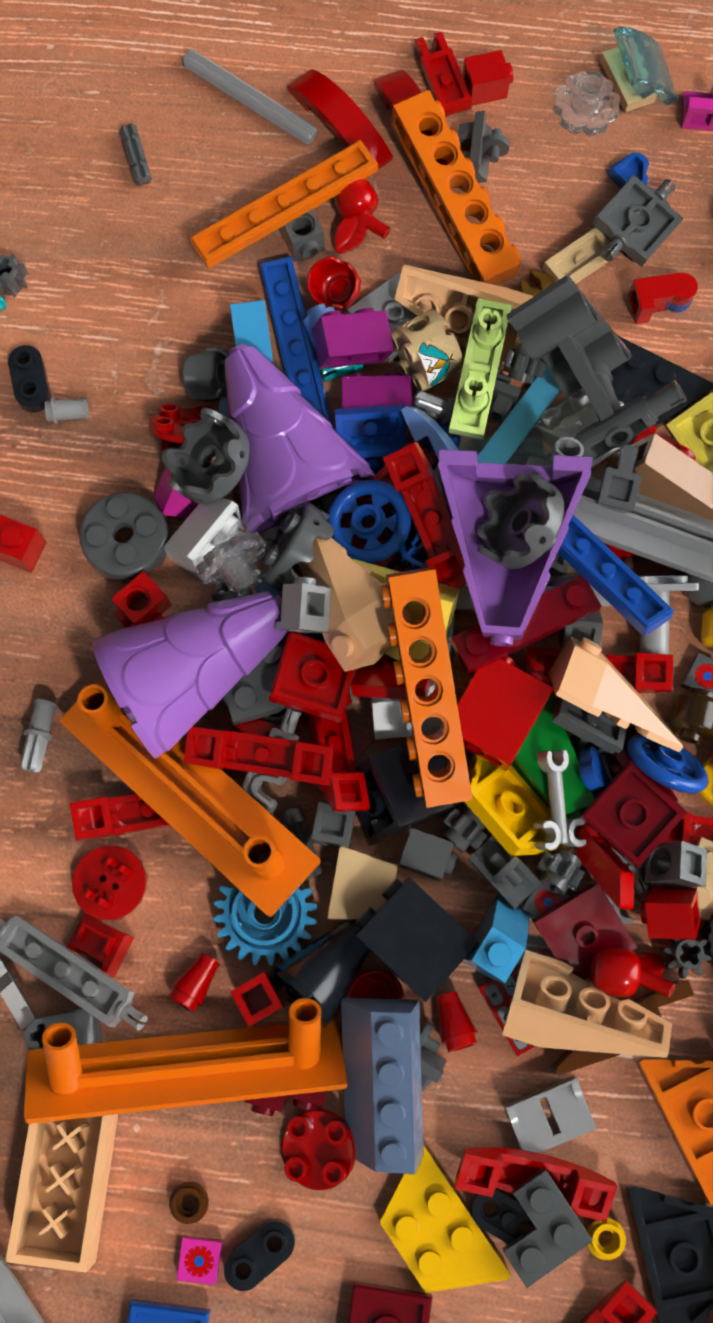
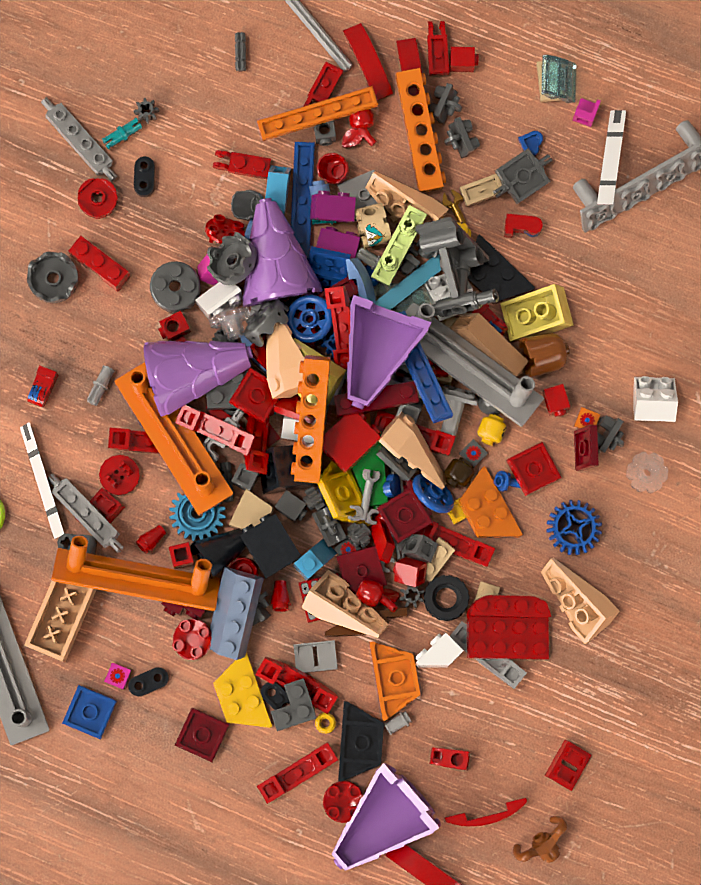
camera: 15 degrees right, 5 degrees up
(66, 409) = (160, 202): light grey pin -> none
(179, 1211) = (113, 644): reddish brown plate -> none
(185, 319) = (243, 164): none -> red hinge
(282, 161) = (324, 84): none -> red hinge
(305, 607) = (261, 358): light grey brick -> none
(522, 190) = (459, 138): none -> dark grey hips
(524, 524) = (385, 345): dark grey plate -> none
(586, 103) = (517, 100): clear plant -> none
(620, 485) = (451, 336): dark grey plate -> none

